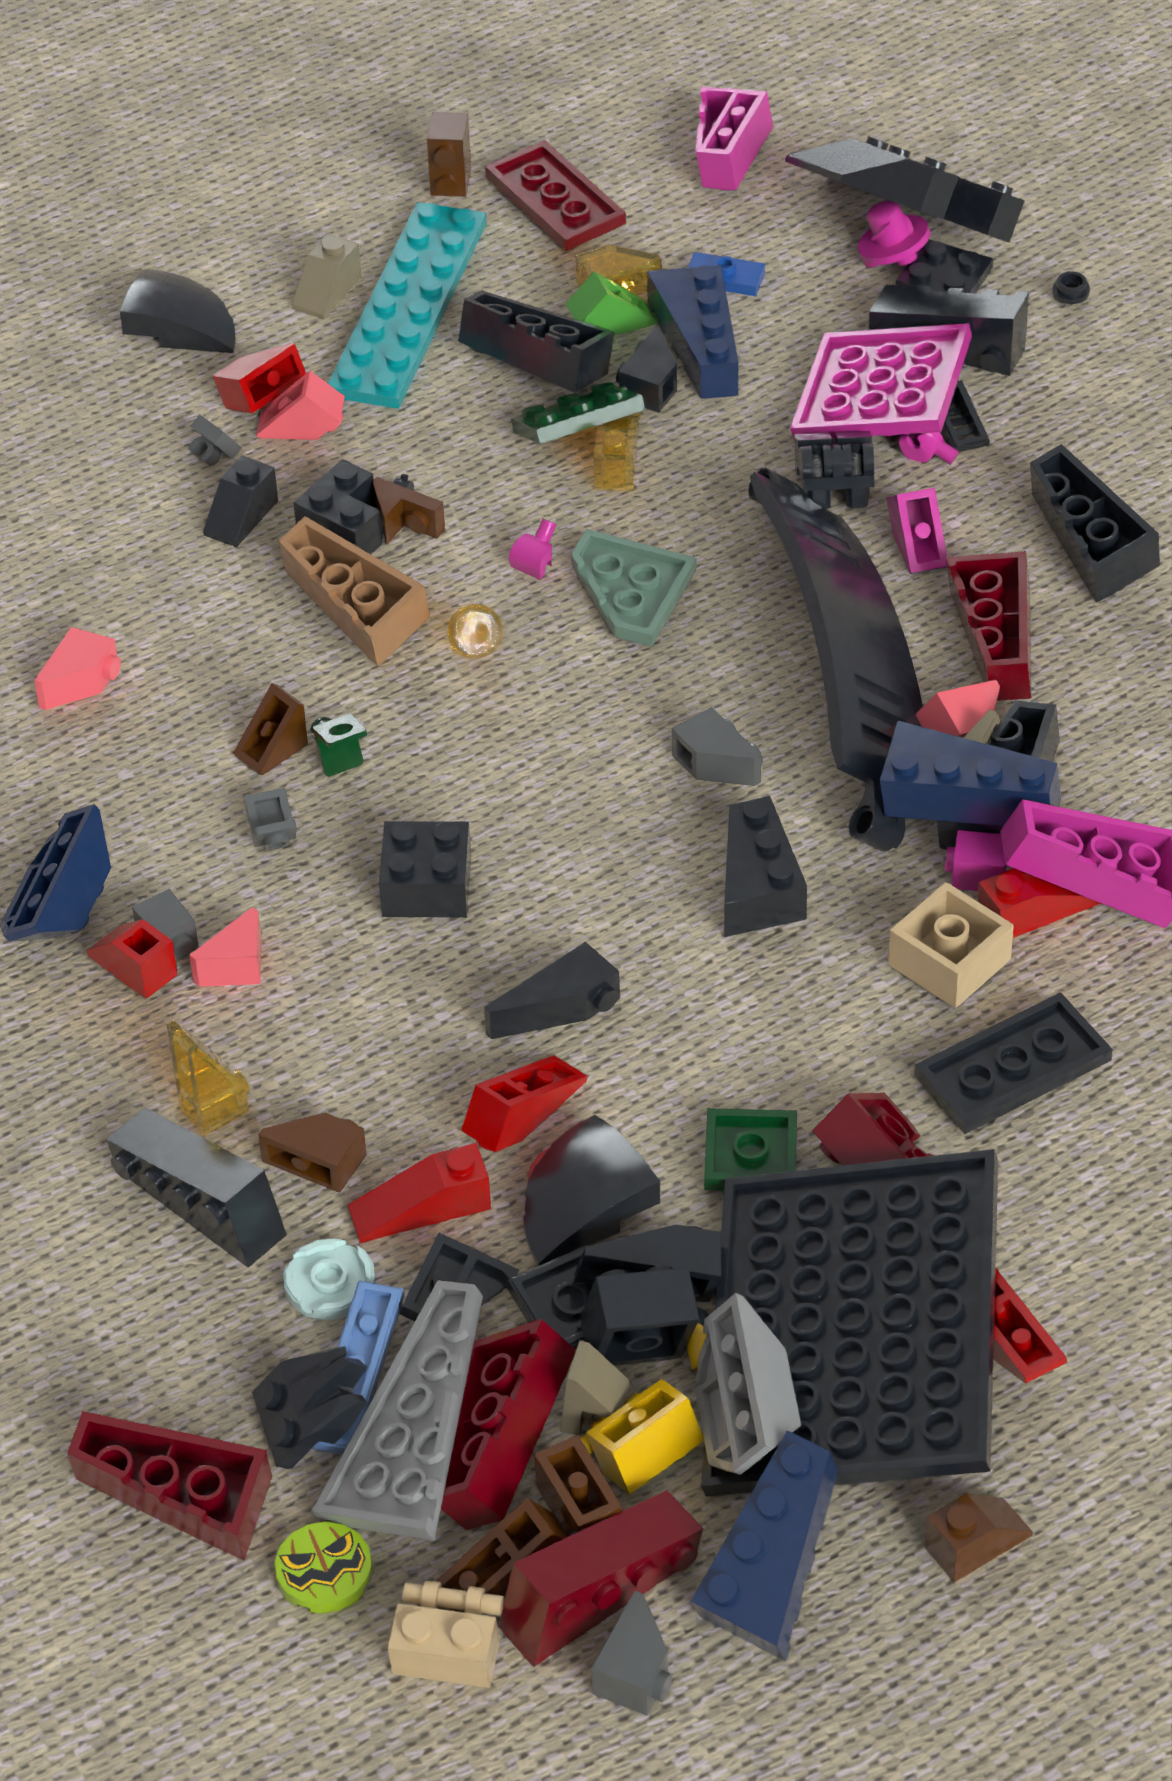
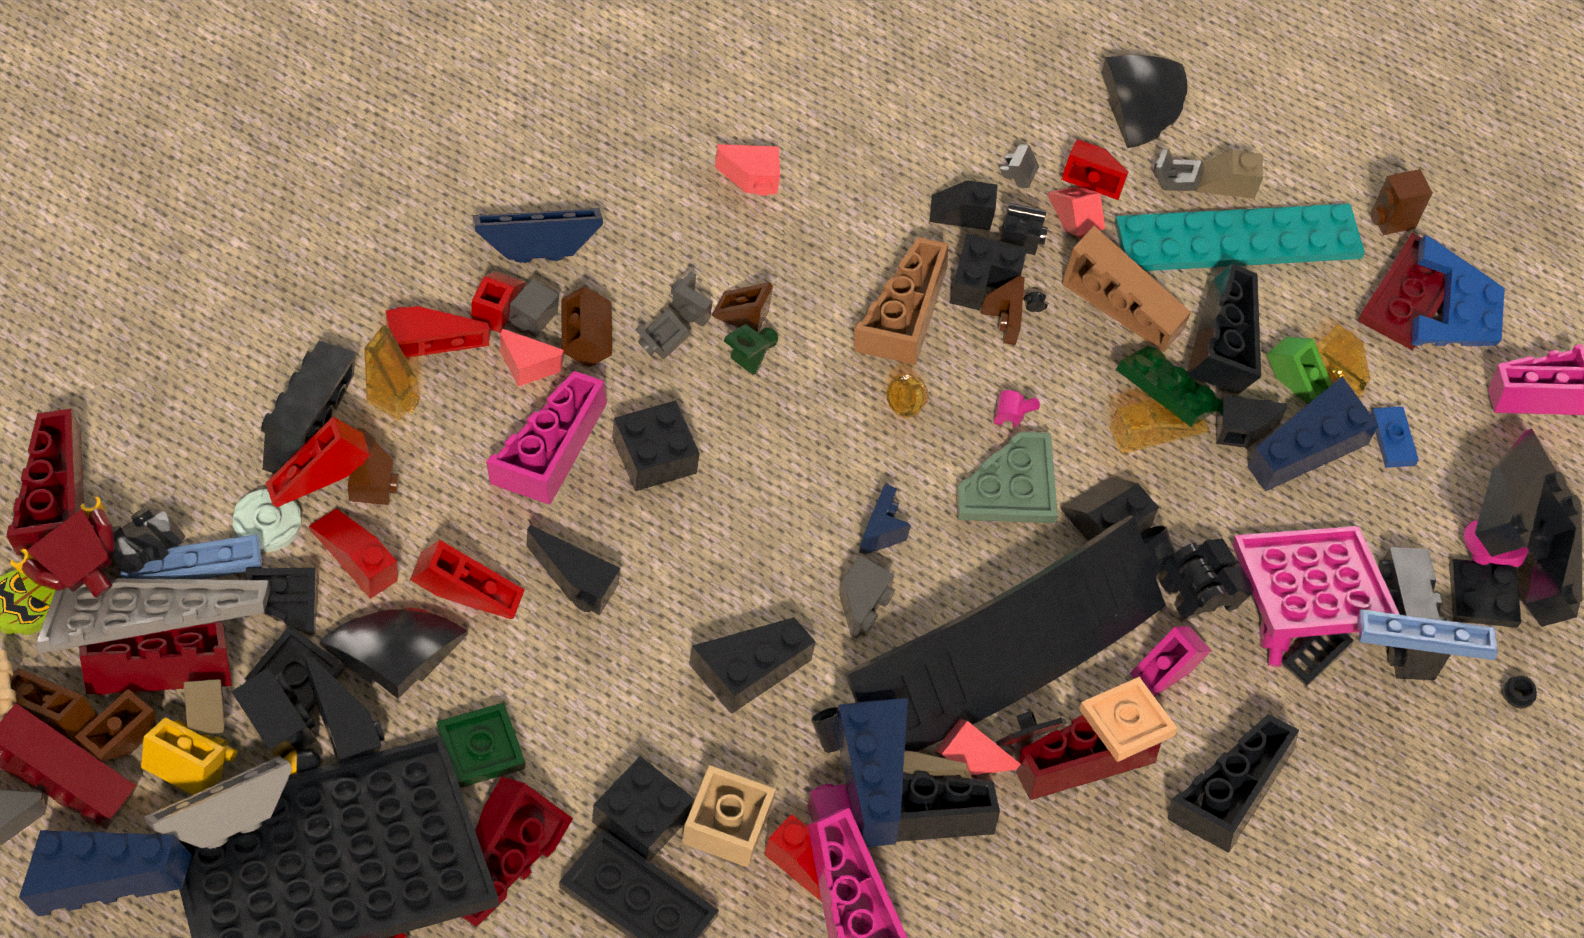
camera: 55 degrees right, 10 degrees up
(140, 1039) = (430, 331): none -> red slope
(225, 880) = (586, 326): none -> reddish brown brick
(236, 780) = (690, 303): none -> dark grey bracket
(299, 1183) = (322, 461): none -> red slope
(300, 317) = (1178, 174): none -> dark grey bracket
(302, 460) = (1024, 227): none -> black brick
(307, 1461) = (73, 553): none -> dark red torso
(375, 962) = (548, 445): none -> dark pink wedge
(435, 407) = (1124, 290): none -> medium nougat wedge
(594, 152) = (1471, 302): none -> blue wing
(625, 707) = (883, 528): none -> dark blue slope
(711, 514) = (1109, 504): none -> black slope
(904, 1019) = (643, 809): none -> black brick
(961, 654) = (1030, 729): none -> black piece
(991, 567) = (1128, 719): none -> light nougat tile
(1004, 303) = (1427, 634): none -> medium blue tile

